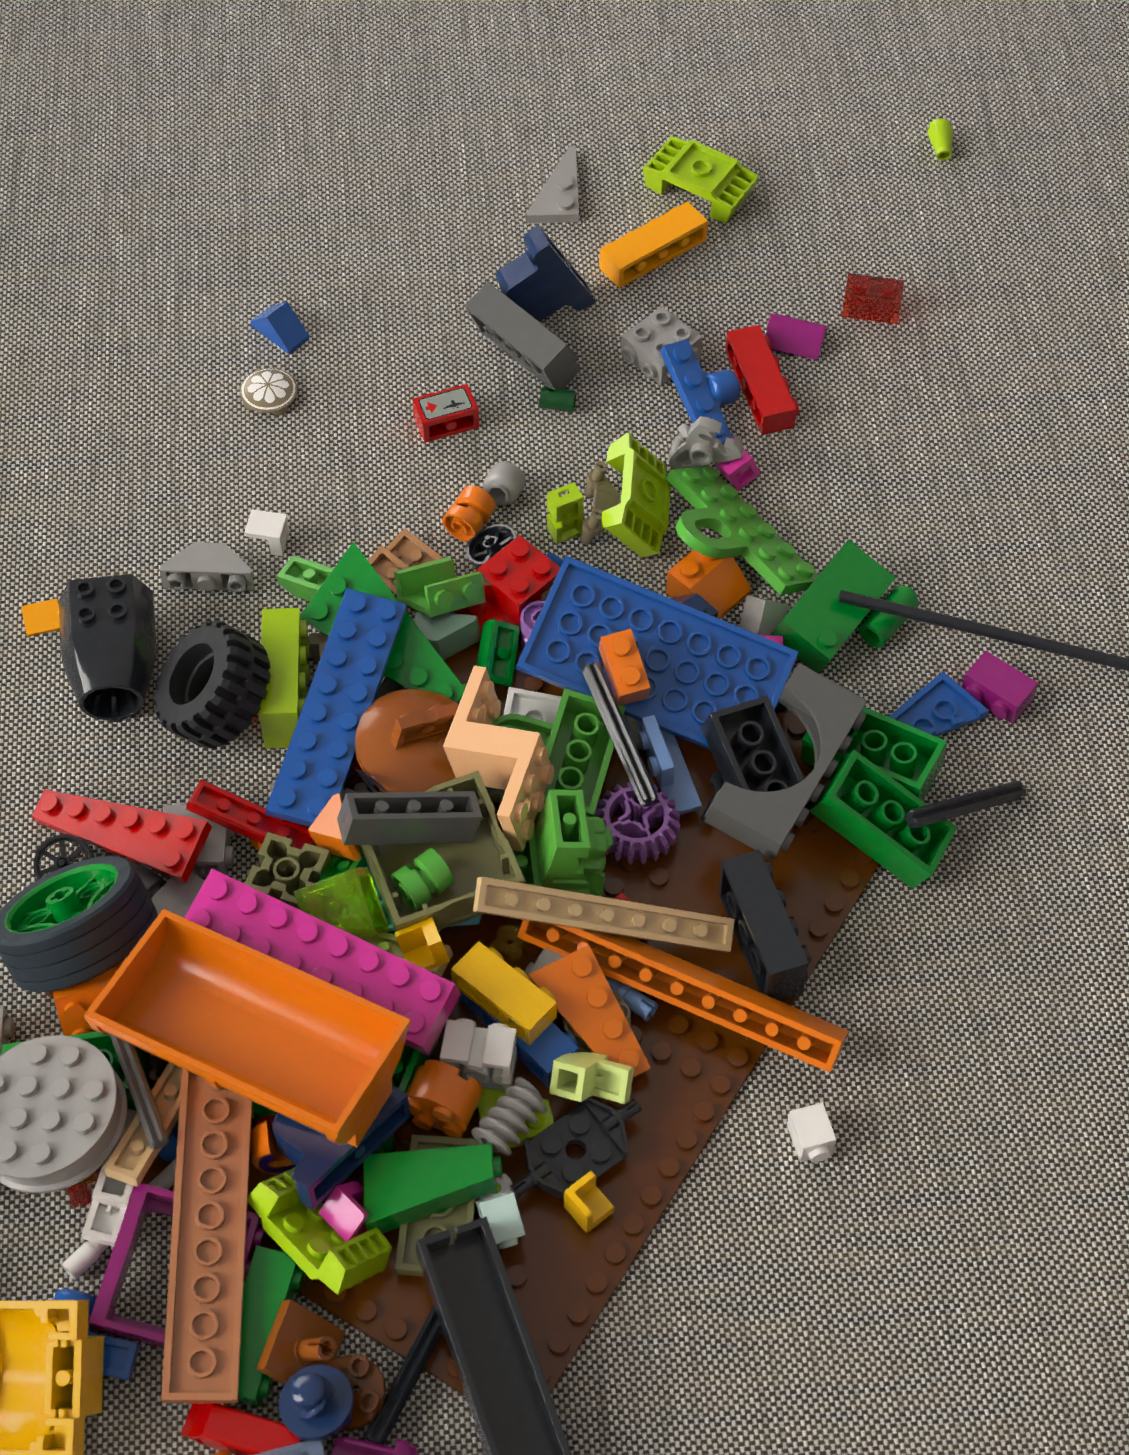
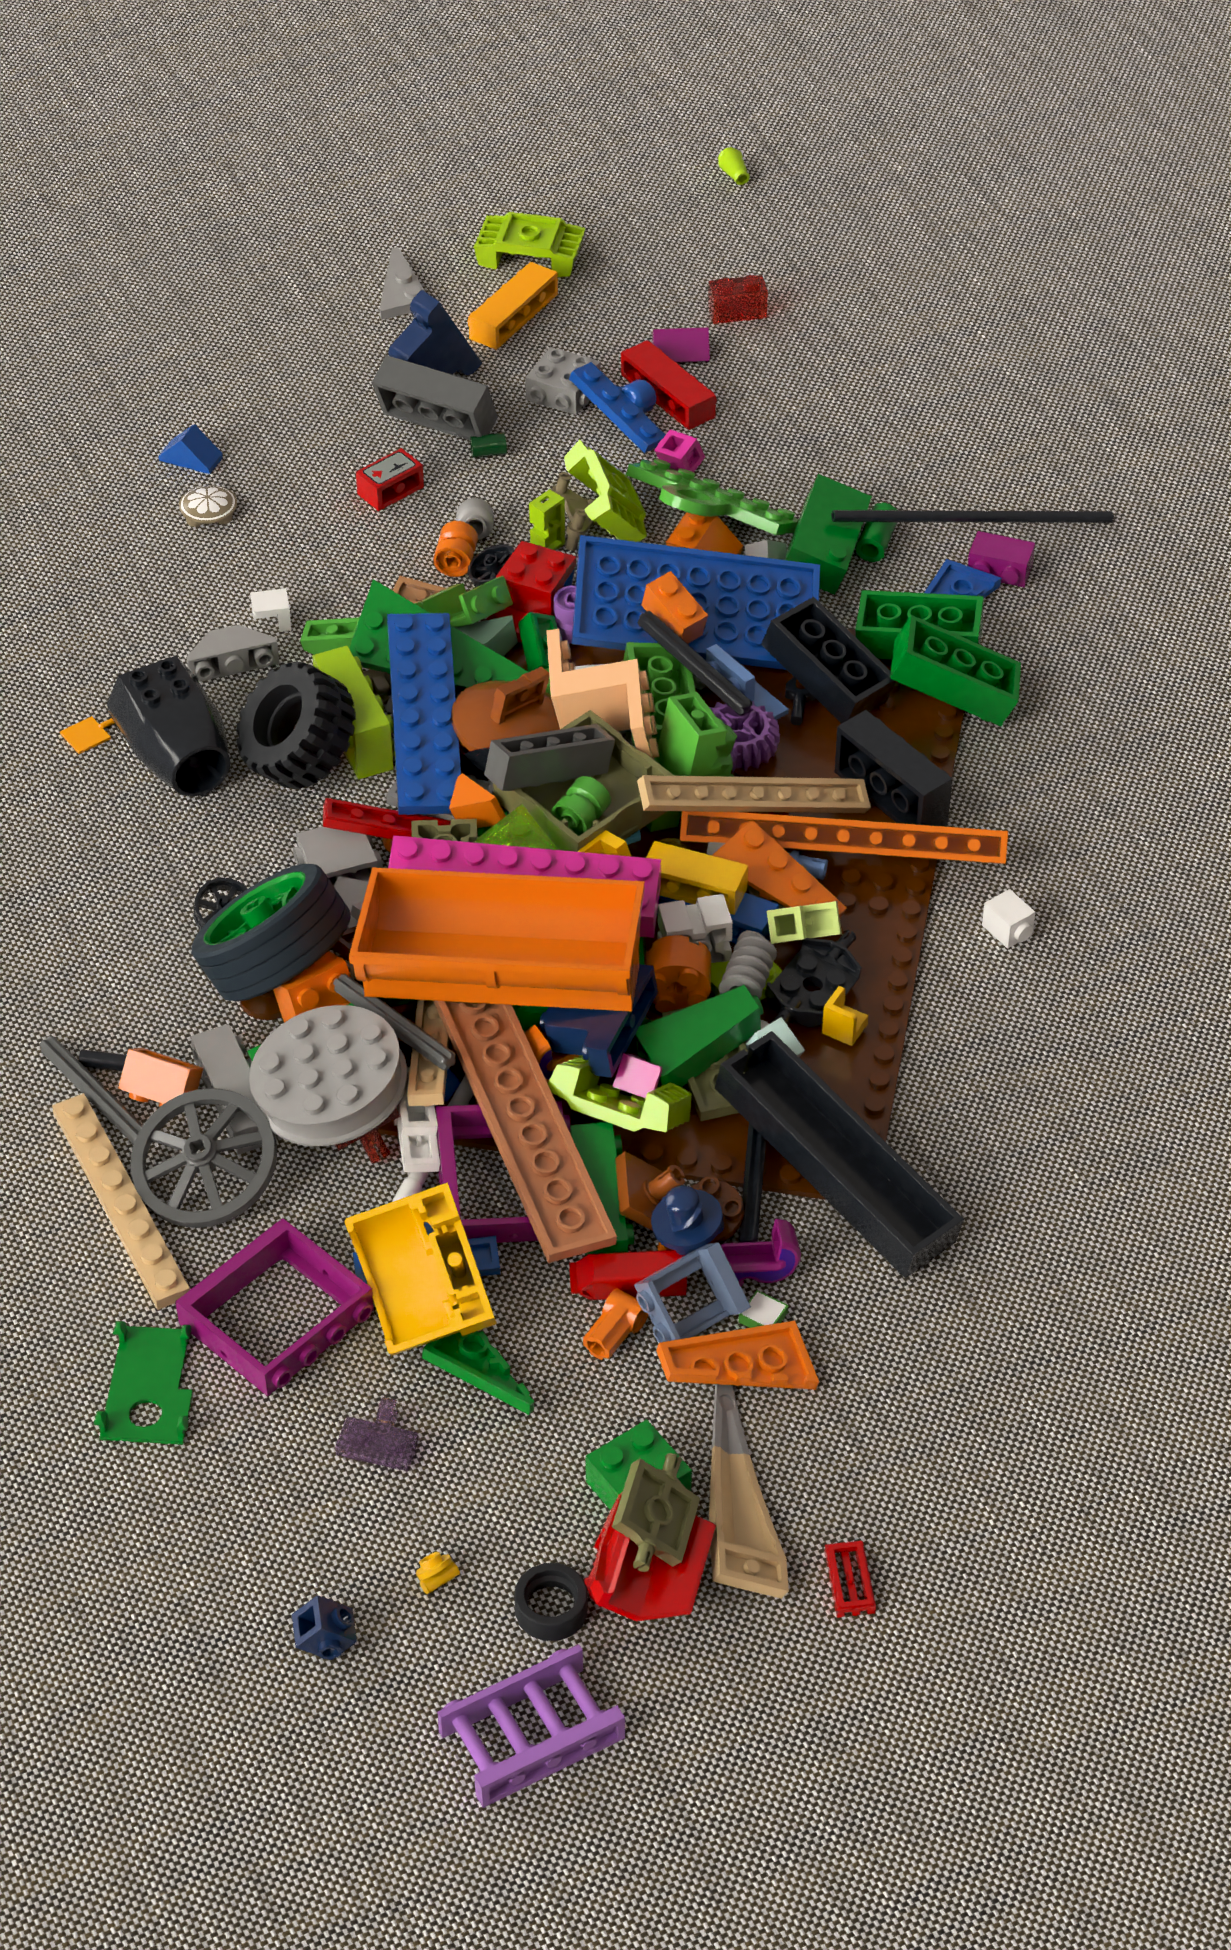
camera: 20 degrees left, 10 degrees down
(143, 836) = (328, 848): wing -> none
(699, 445) = (646, 439): light grey animal -> none
(768, 818) = (863, 683): dark grey arch -> none
(964, 804) = (1019, 643): black axle -> none

